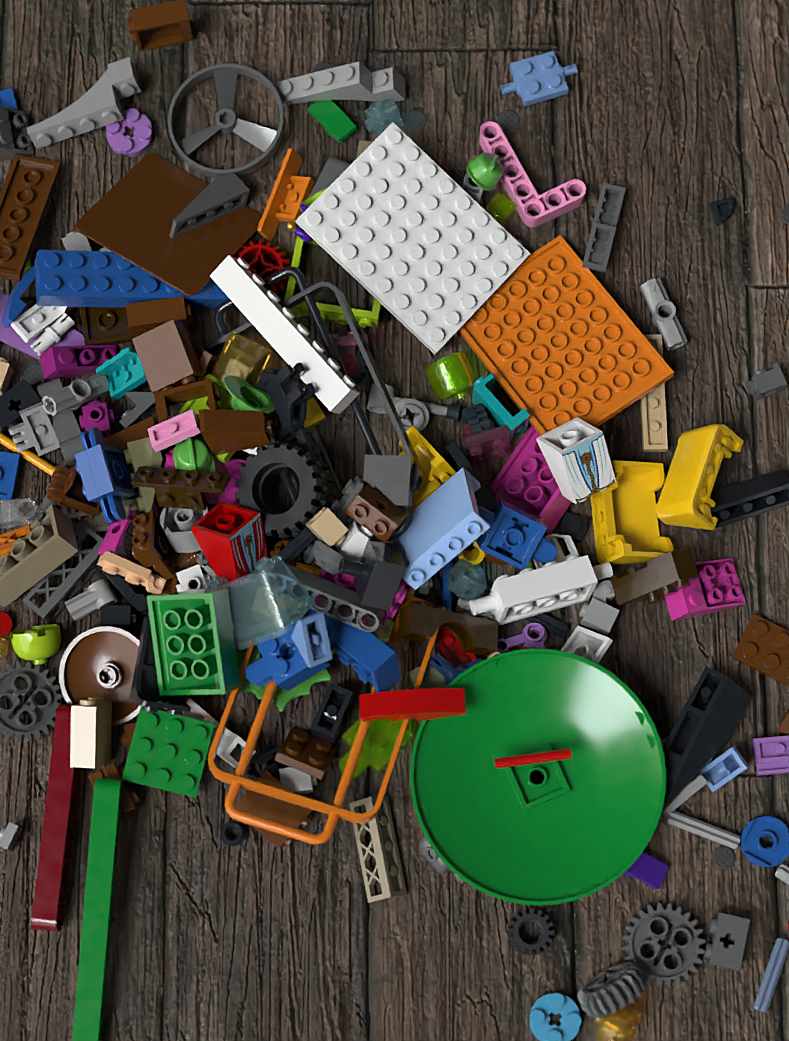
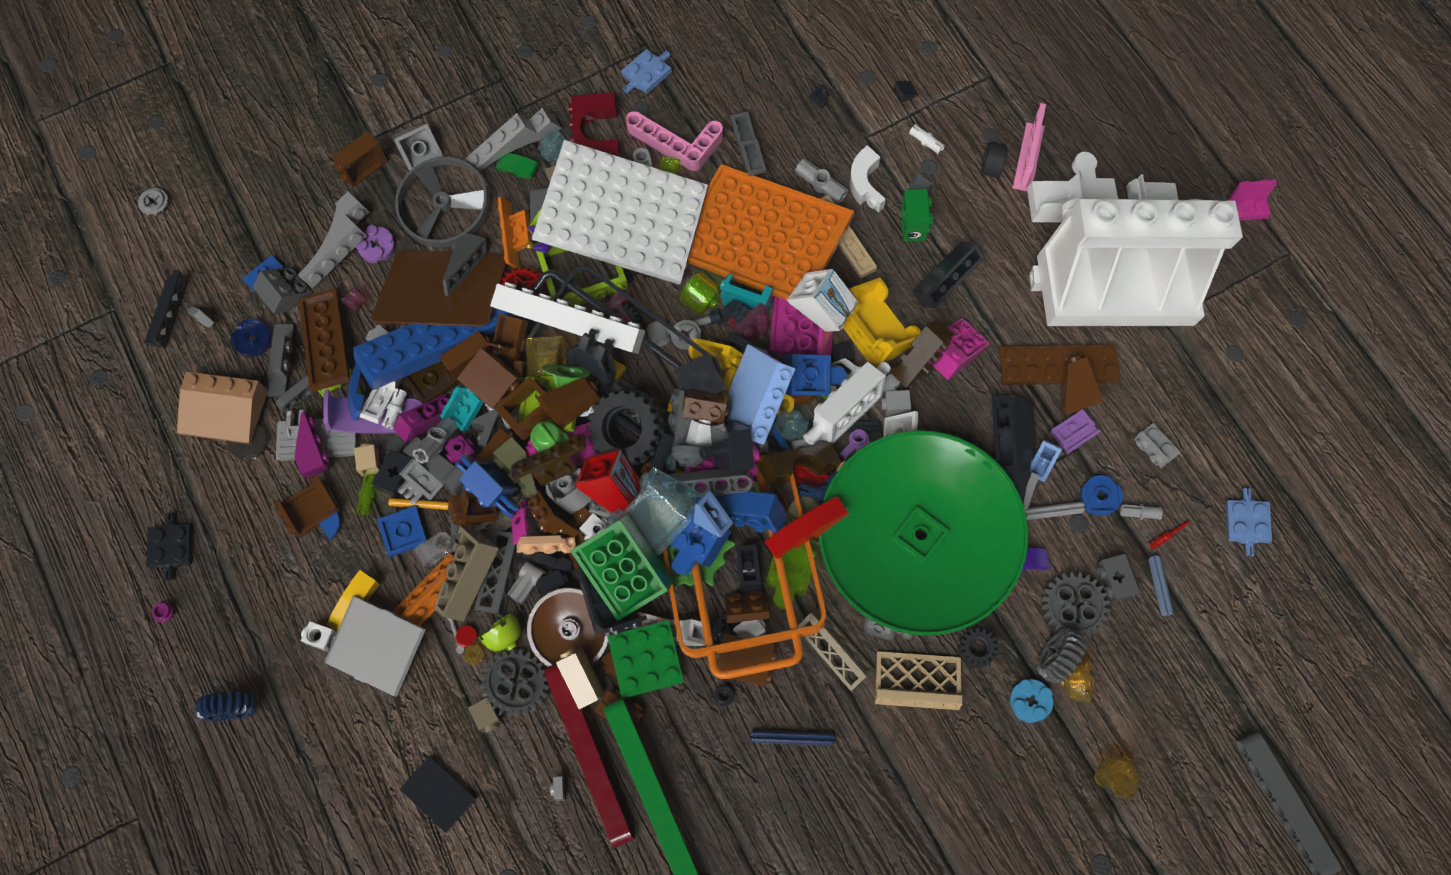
camera: 25 degrees left, 5 degrees down
(72, 186) = (353, 300): none -> clear pink wheel
(174, 430) = (524, 423): bright pink plate -> none
(213, 320) = (509, 337): none -> reddish brown piece
(232, 39) = (417, 145): none -> light grey slope
(278, 917) = (801, 738): none -> dark blue axle
(327, 528) = (675, 433): tan brick -> none
(431, 947) = (920, 698): none -> tan fence
(442, 91) = (590, 108): none -> dark red arch
(485, 170) = (646, 144): bright green piece -> none
(532, 758) = (913, 520): red bar -> none
(692, 475) = (907, 273): yellow windscreen -> none
(719, 321) = (862, 167): none -> white arch
(748, 406) = (916, 215): none -> green brick

